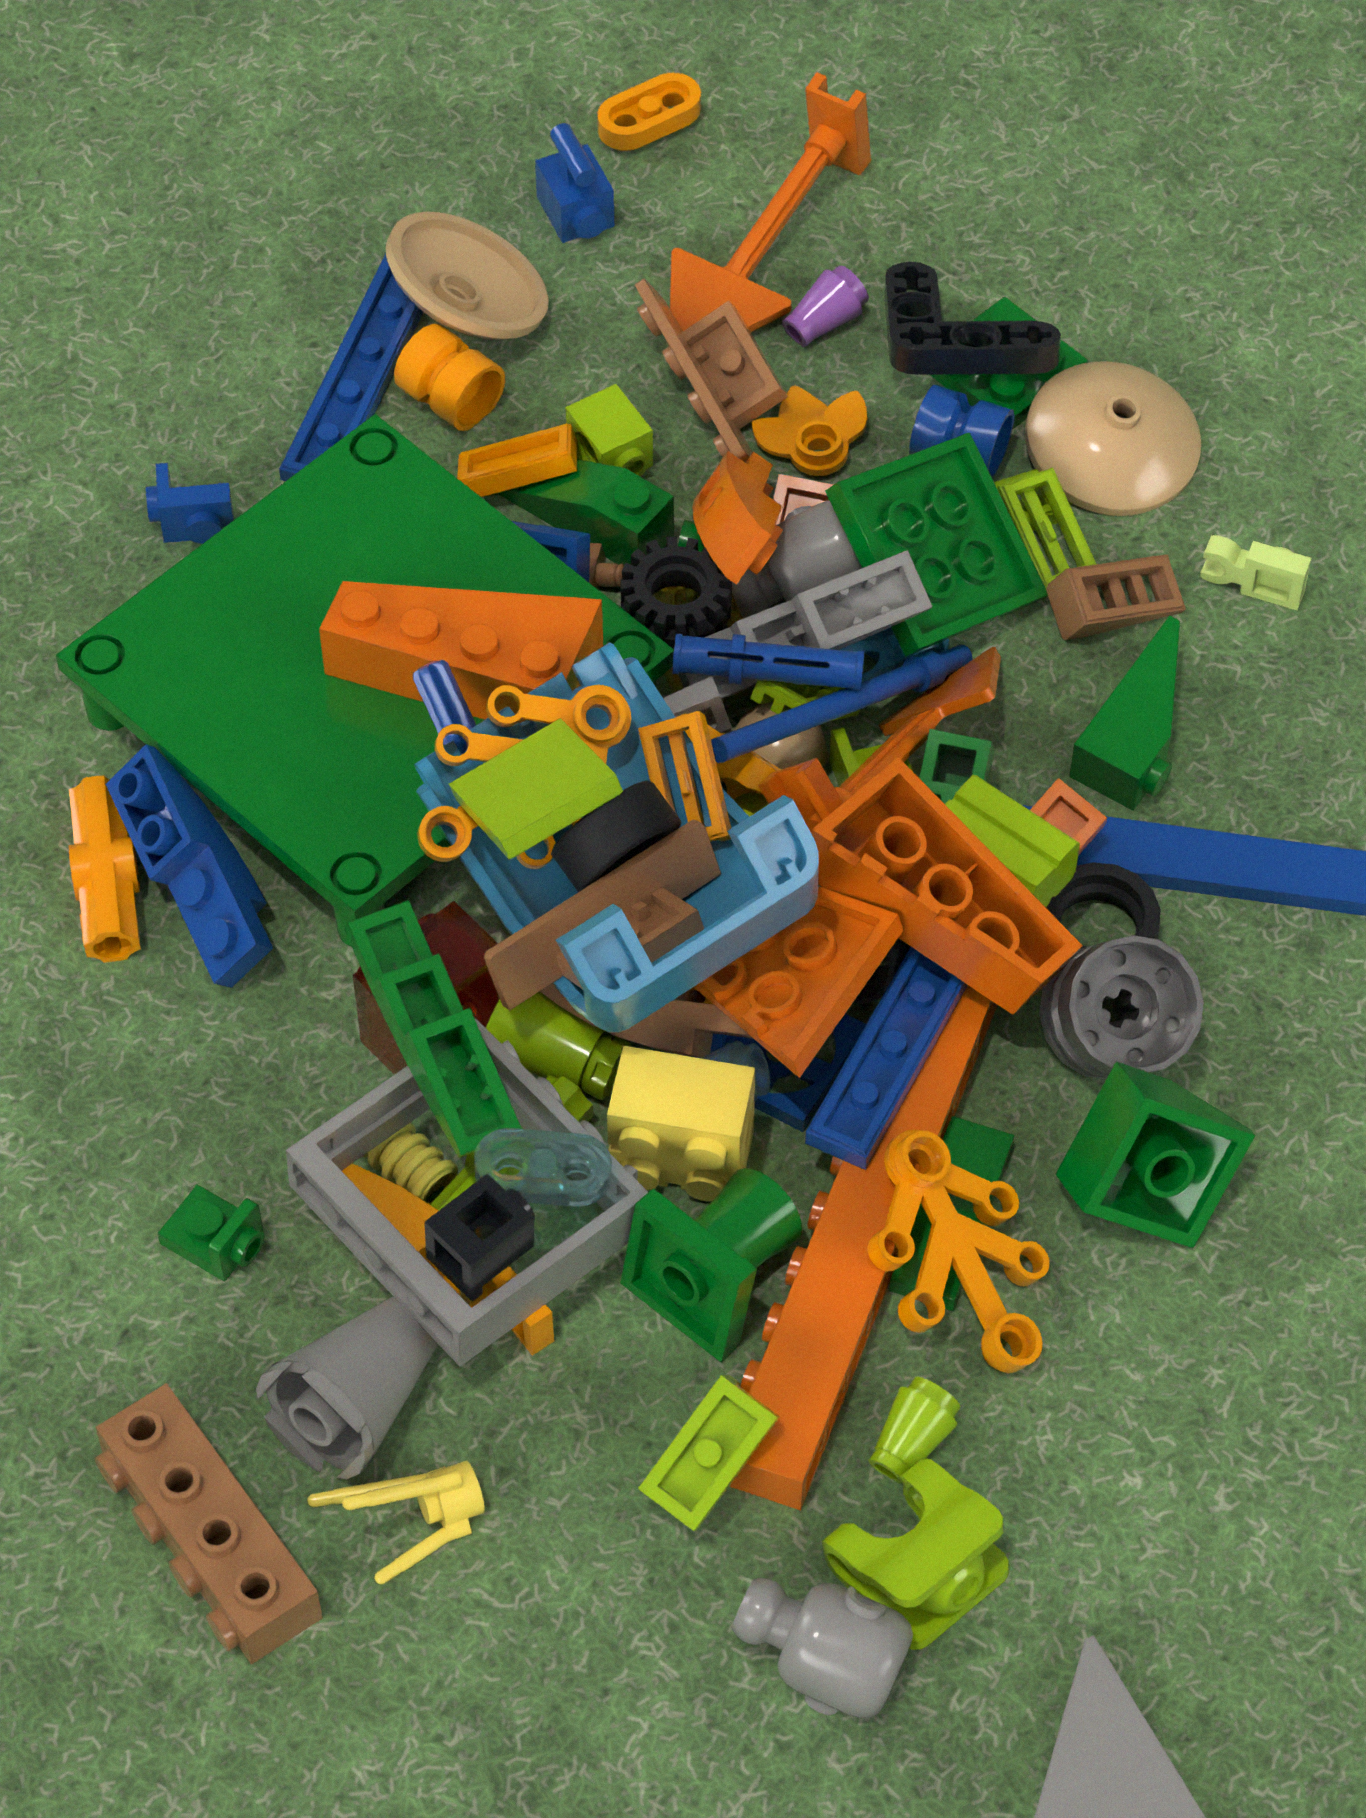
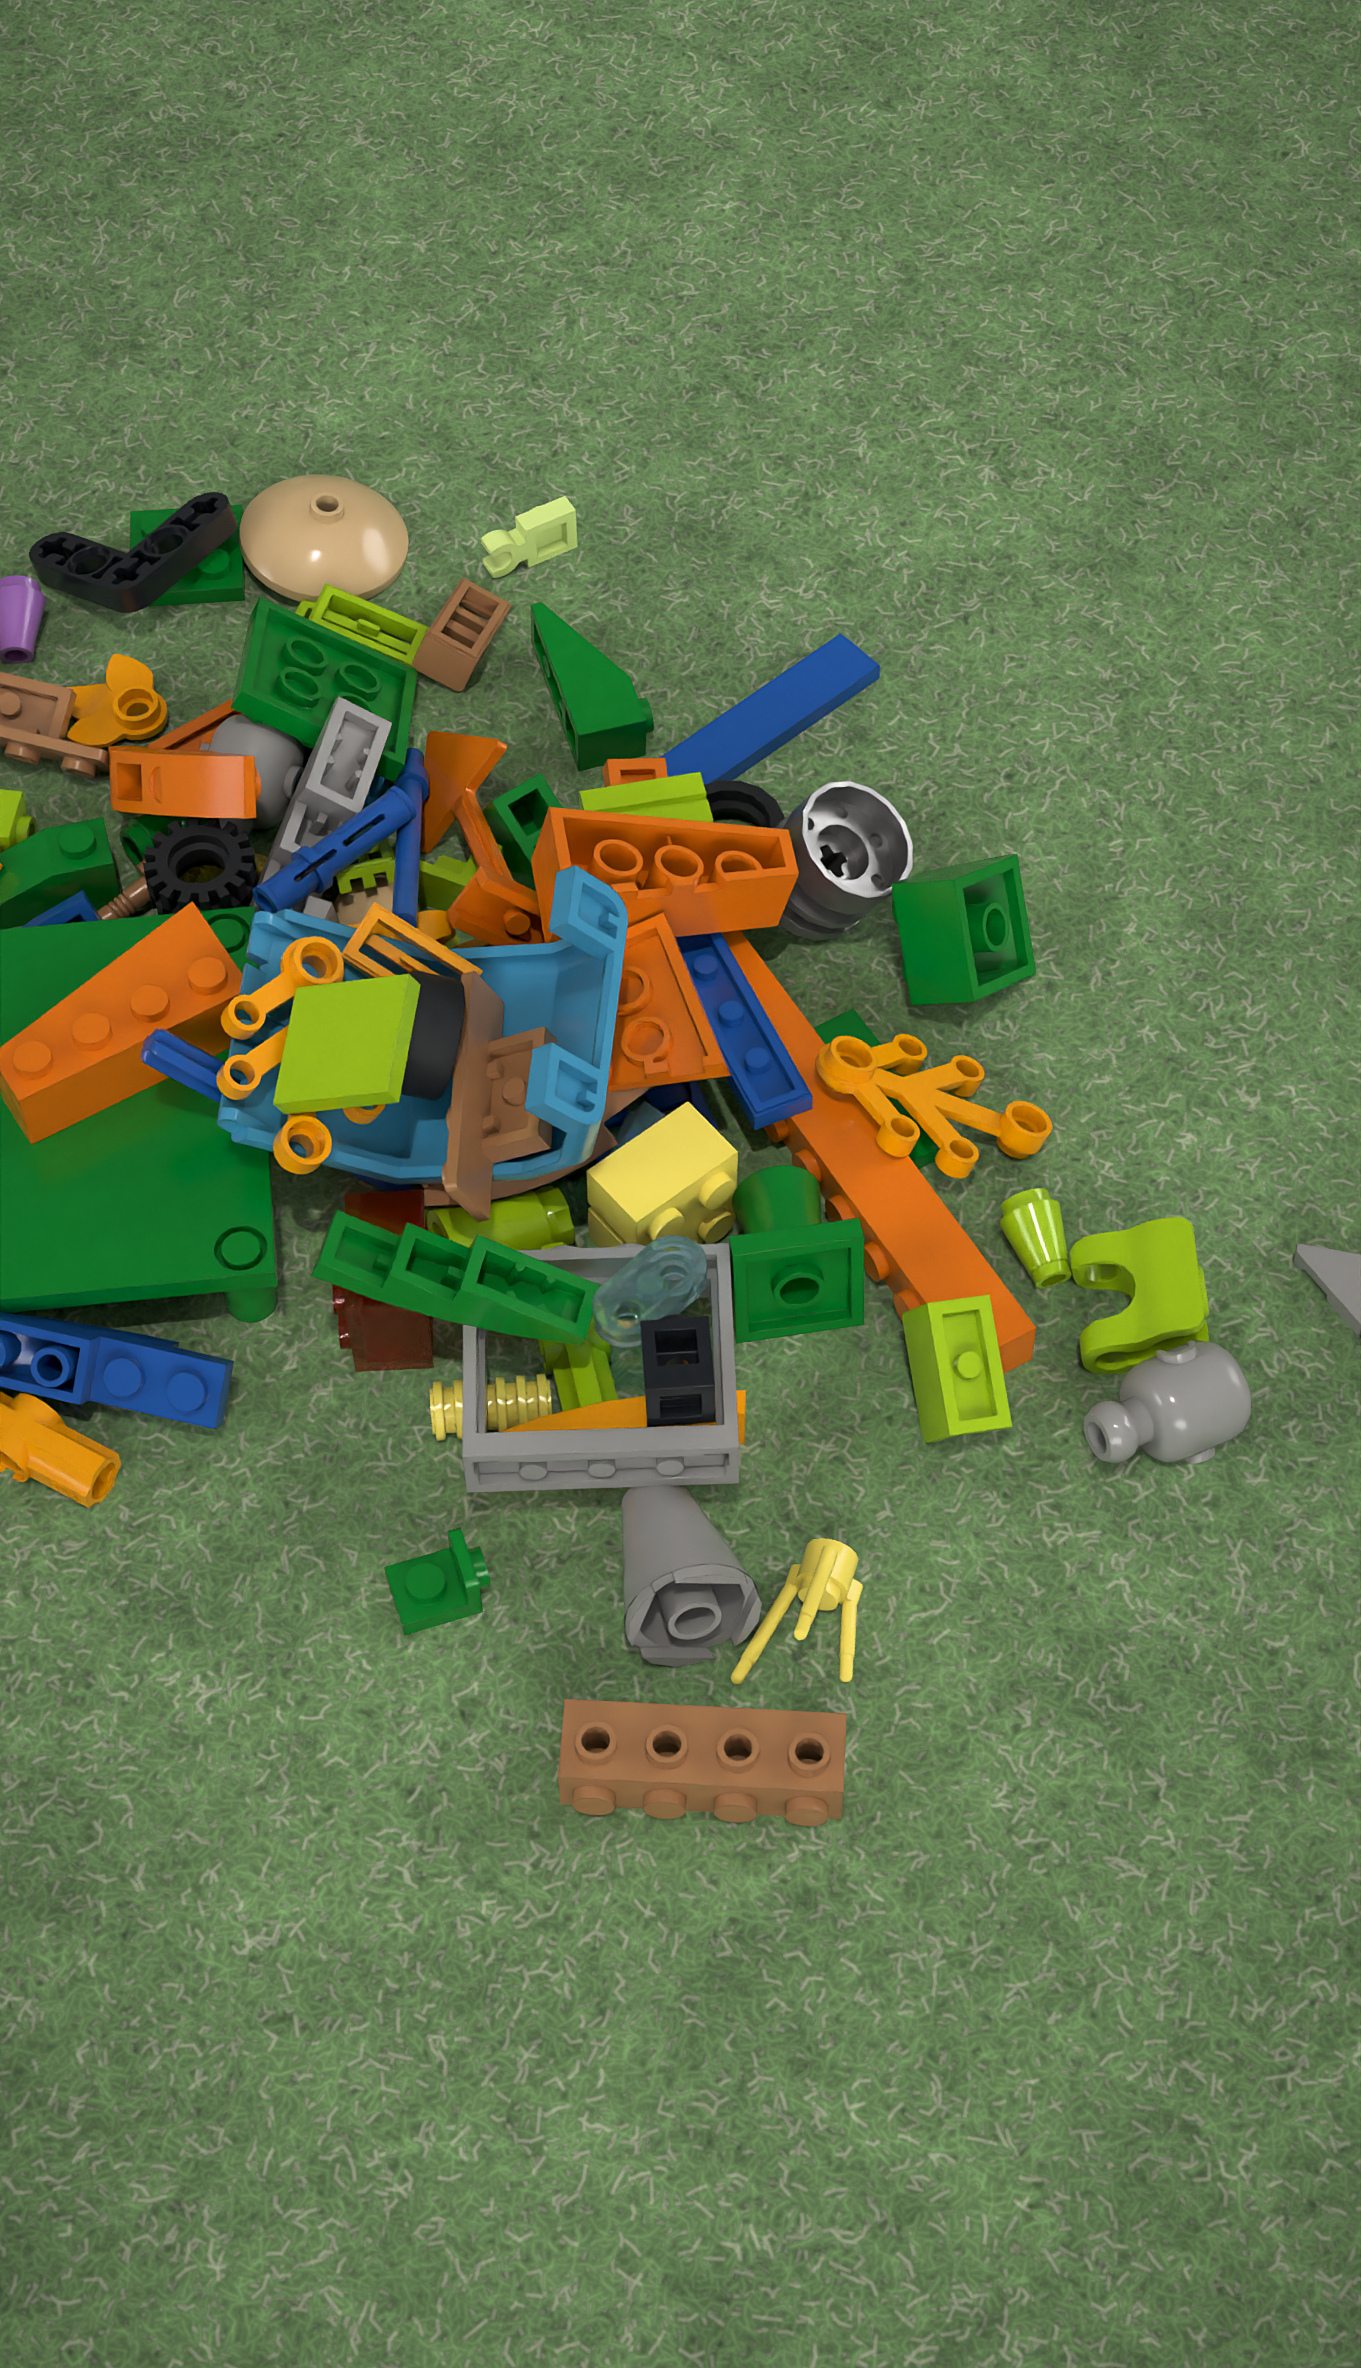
camera: 50 degrees left, 0 degrees up
(948, 415) = (220, 619): blue wheel -> none

